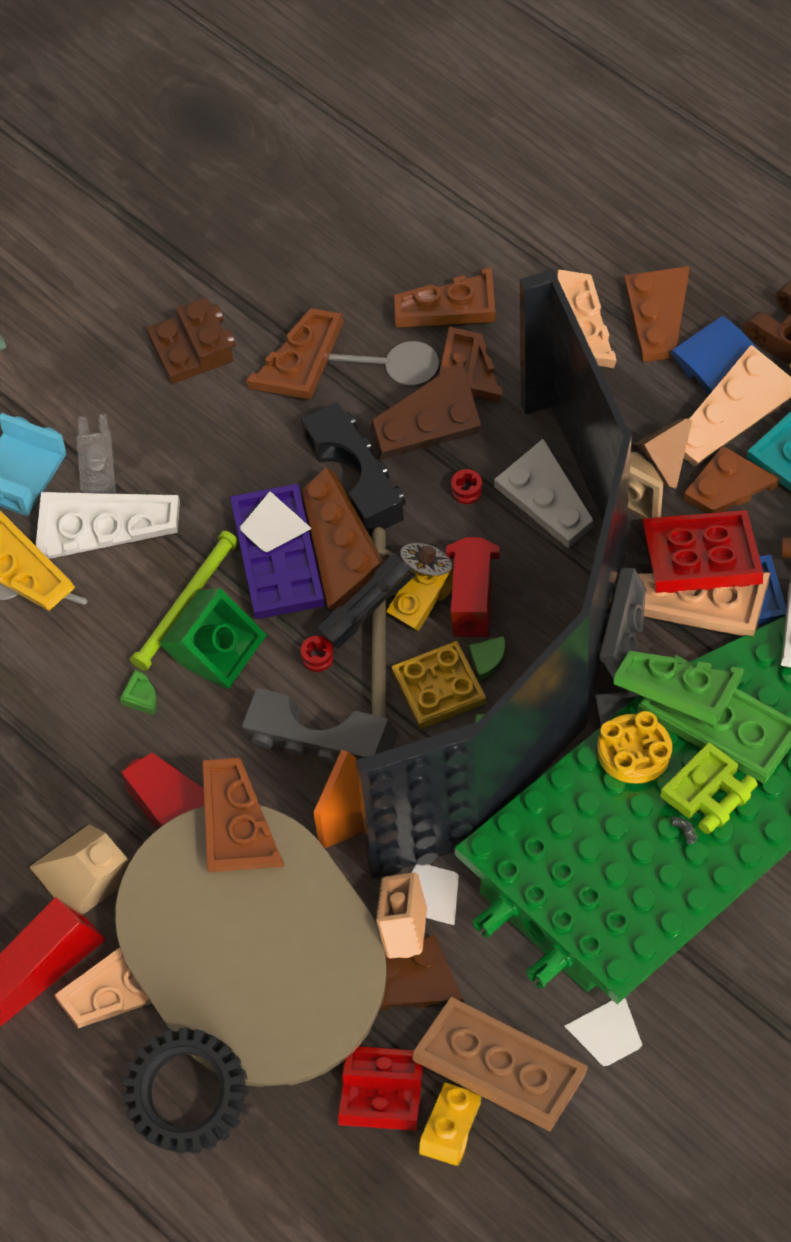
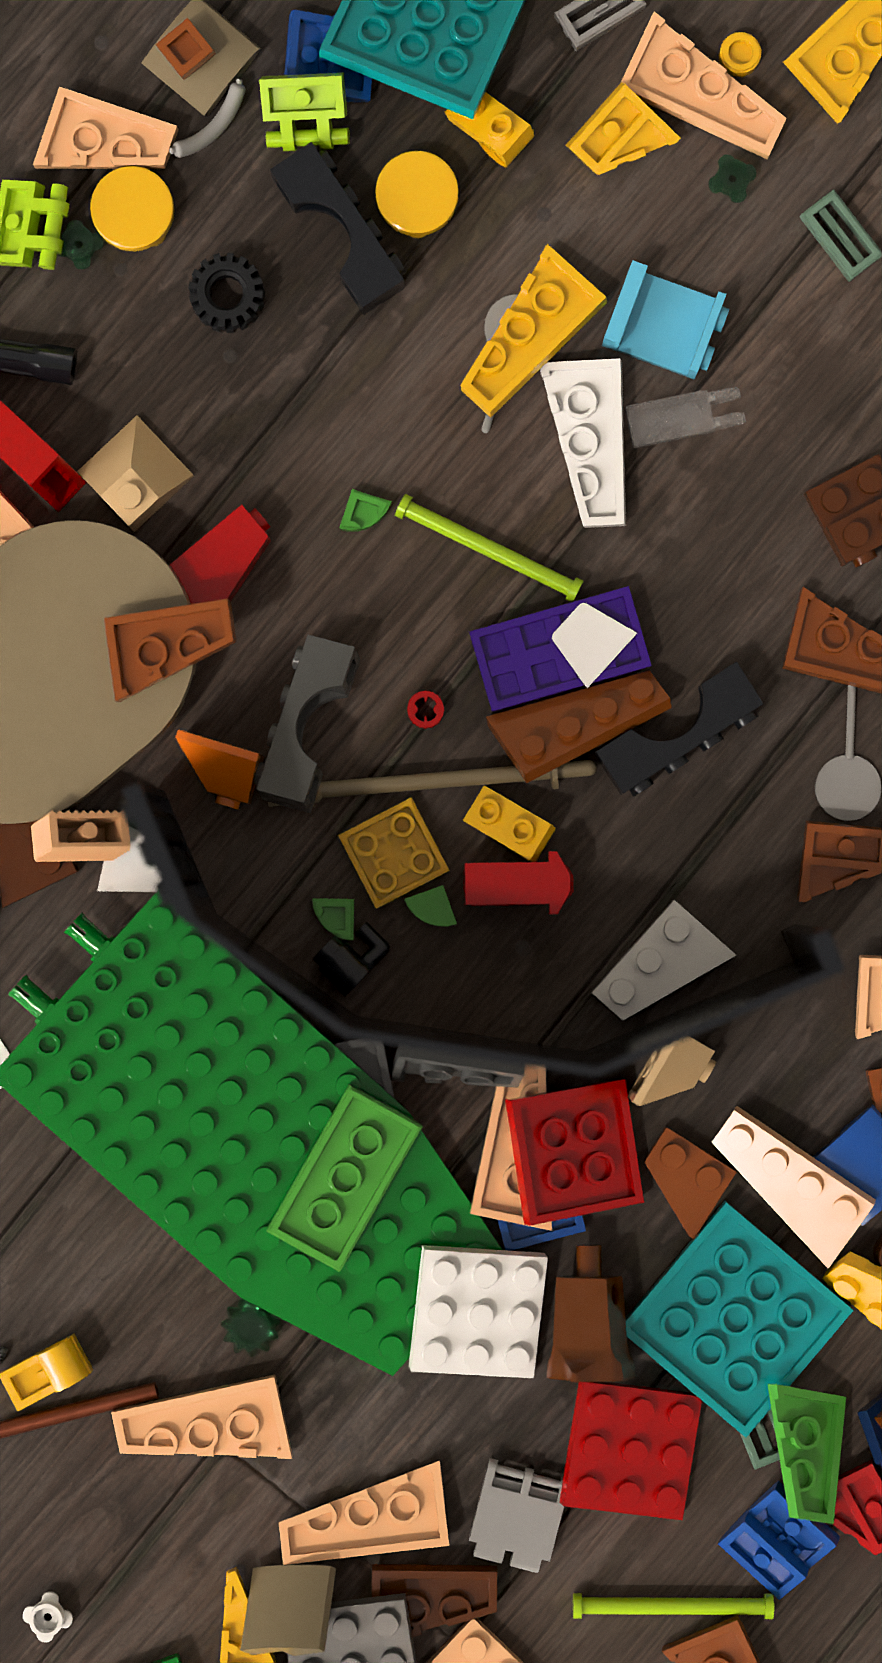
camera: 85 degrees right, 30 degrees up
(213, 637) = (434, 587): green slope -> none
(385, 582) = (502, 781): black axle -> none
(426, 559) = (536, 828): piece -> none
(428, 417) = (749, 815): reddish brown wedge -> none
(475, 490) = (675, 858): red bush -> none
(634, 747) = (295, 1083): yellow tile -> none
(666, 450) = (717, 1104): medium nougat slope -> none
(683, 687) = (369, 1136): bright green wing -> none
(686, 830) = (189, 1147): dark grey leg -> none
(700, 780) = (252, 1157): lime plate -> none

